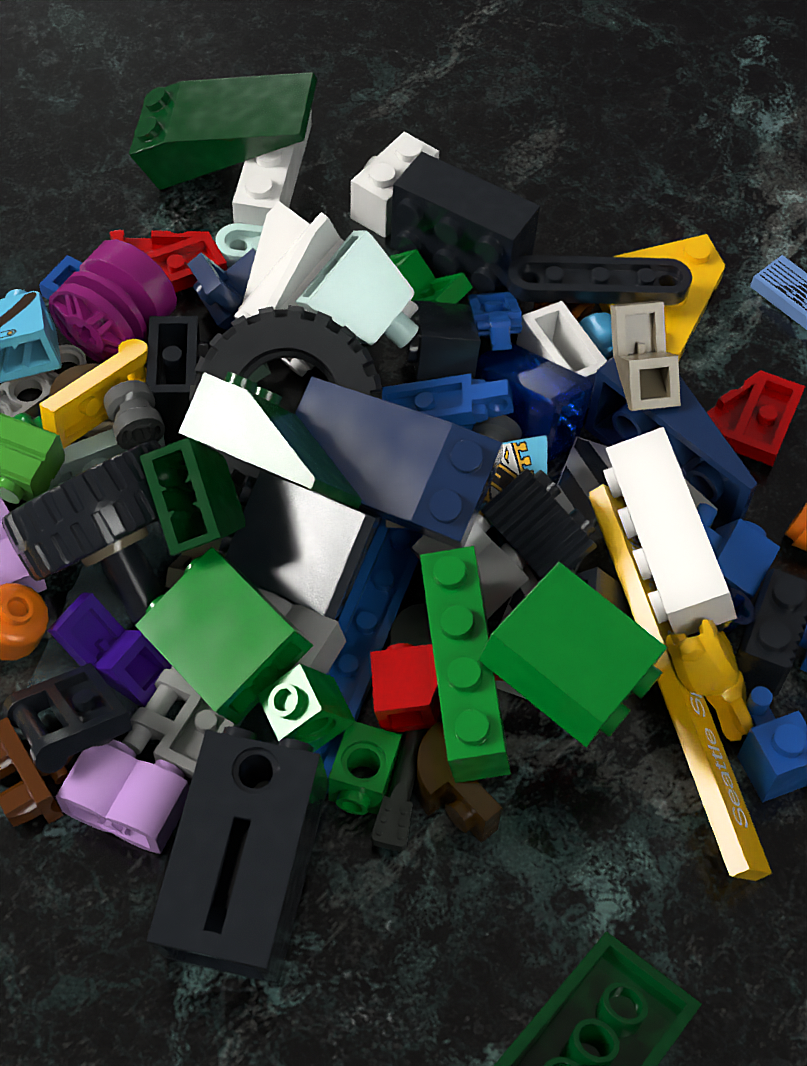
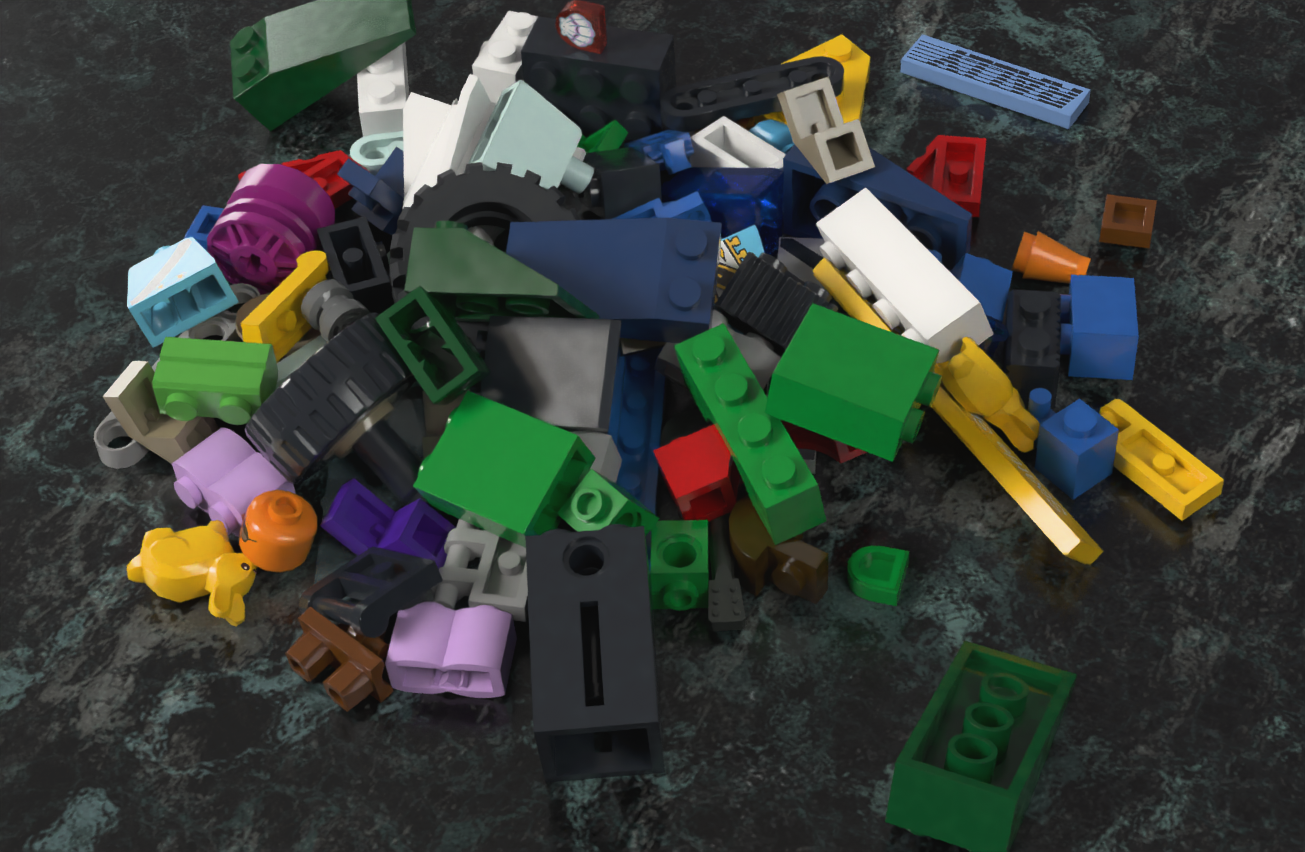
camera: 10 degrees left, 10 degrees down
(455, 177) = (583, 25): none -> clear red tile
(549, 830) = (878, 573): none -> green tile

